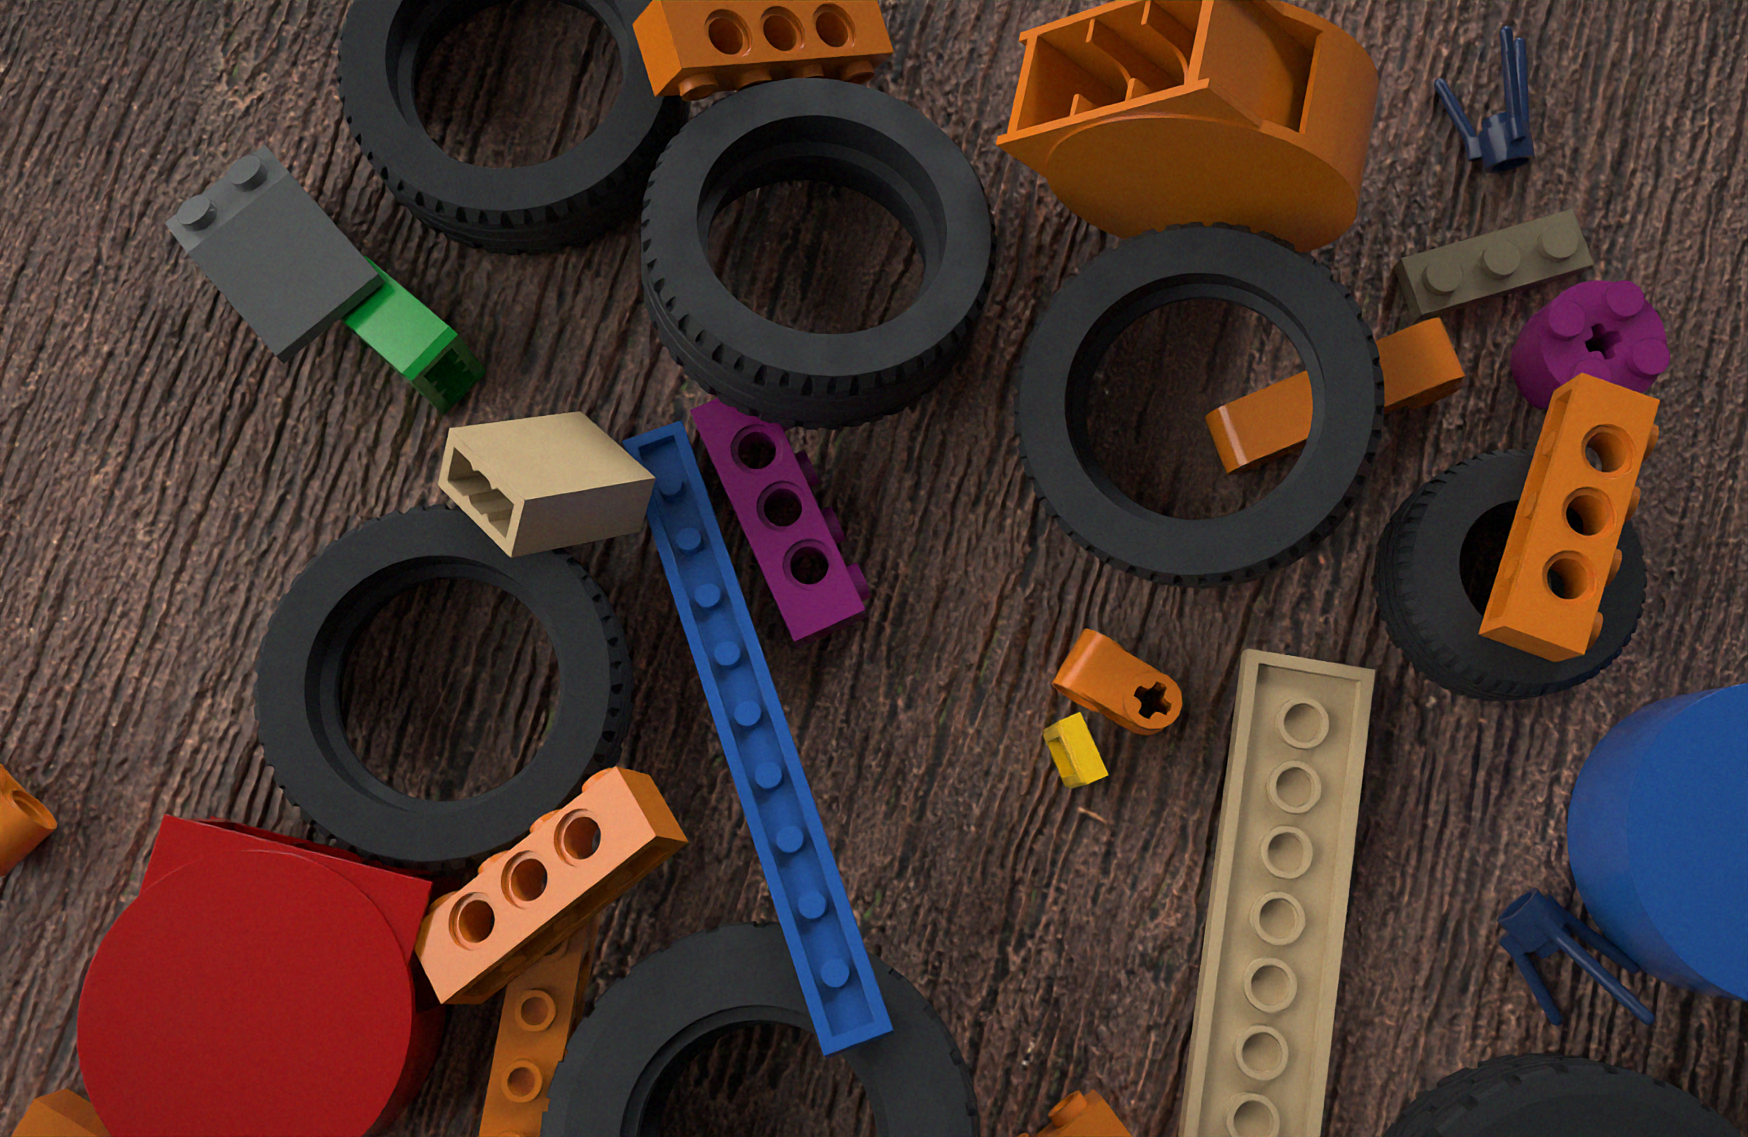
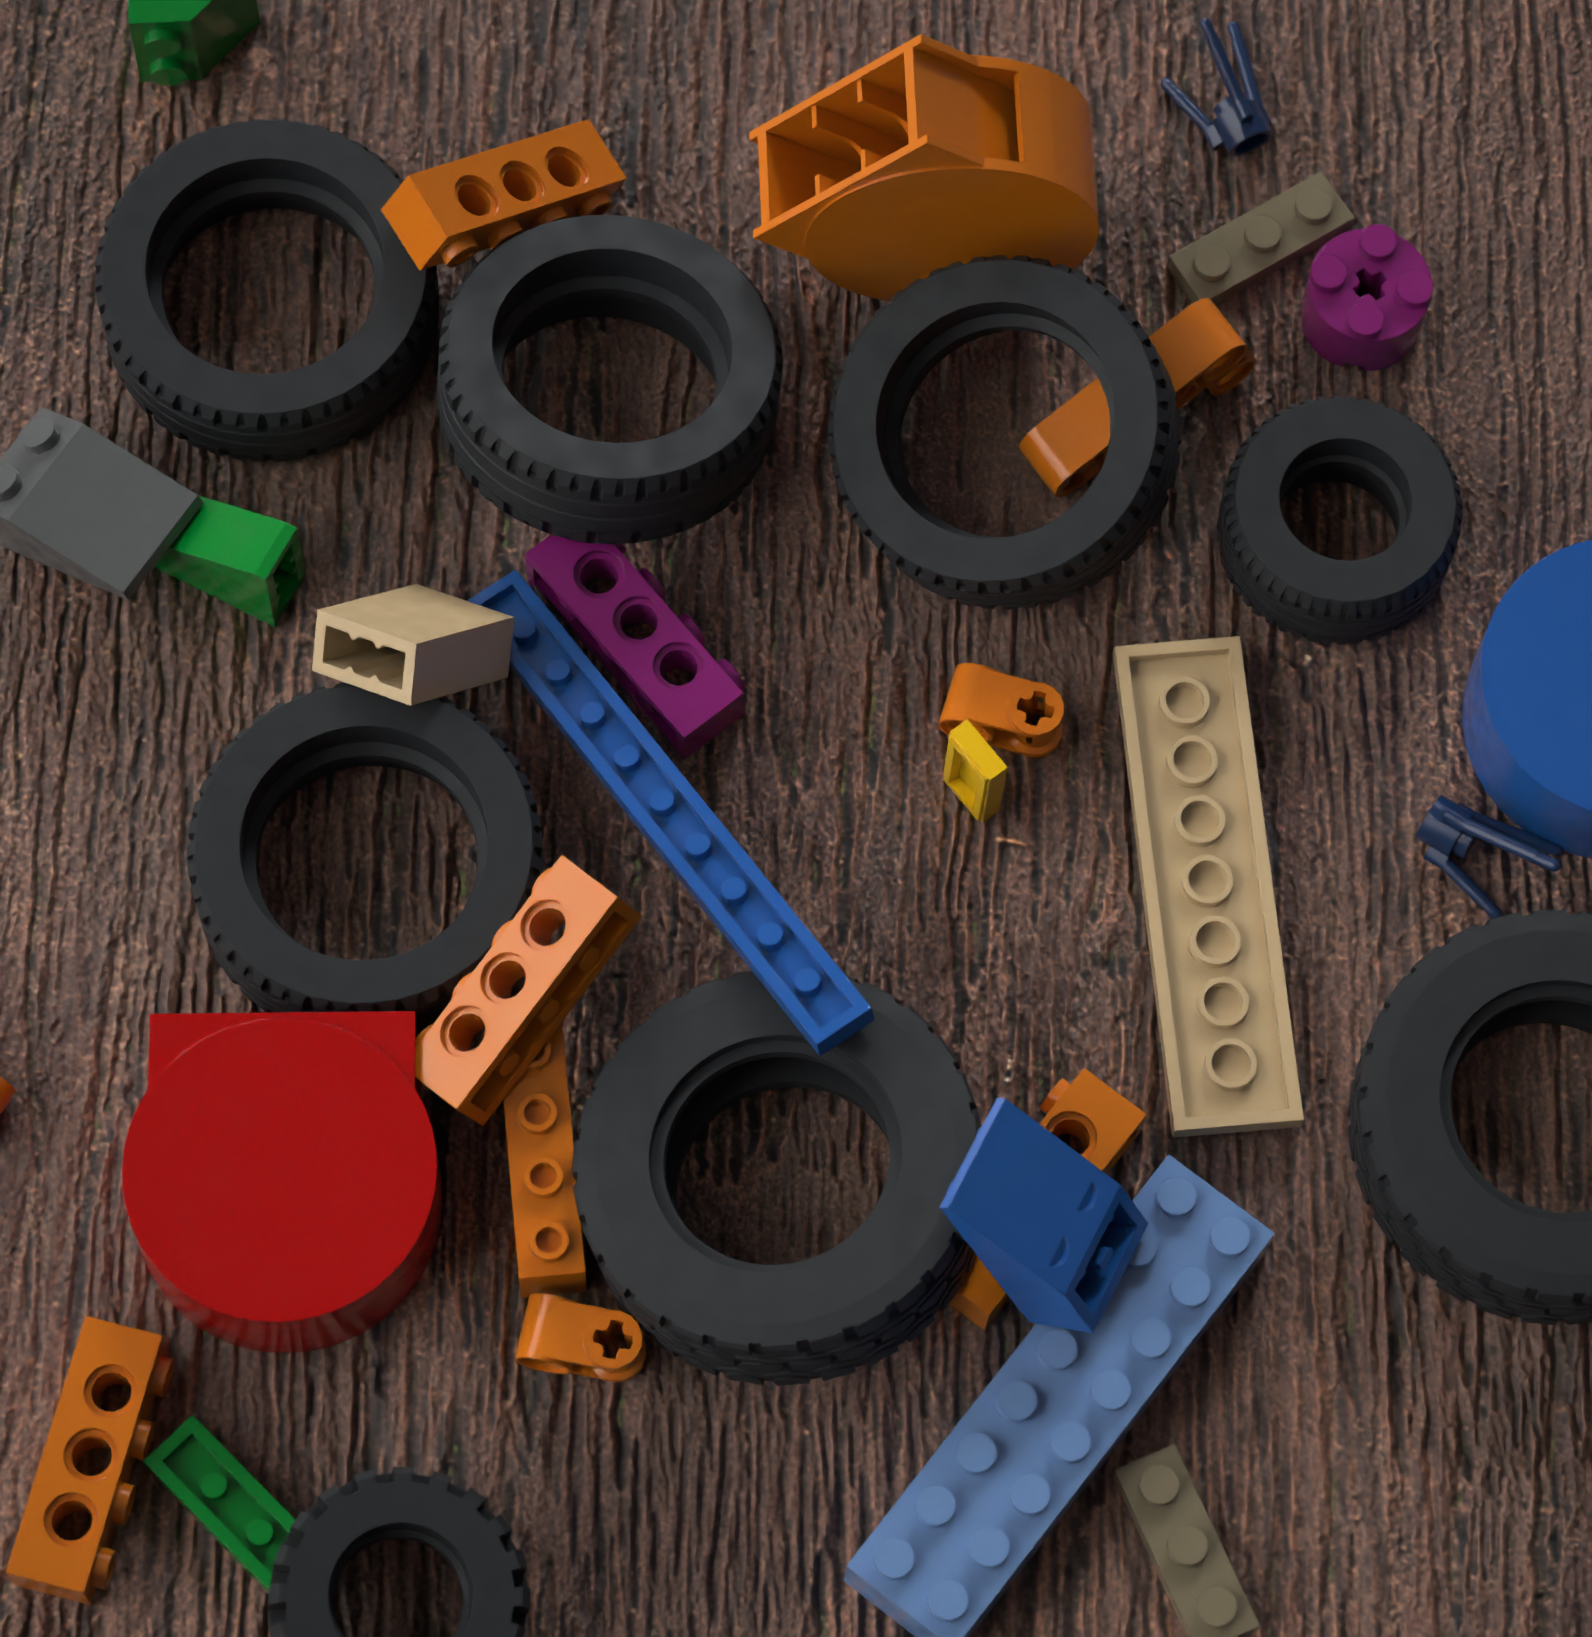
camera: 15 degrees left, 10 degrees down
(1521, 604) = (1347, 534): orange brick -> none

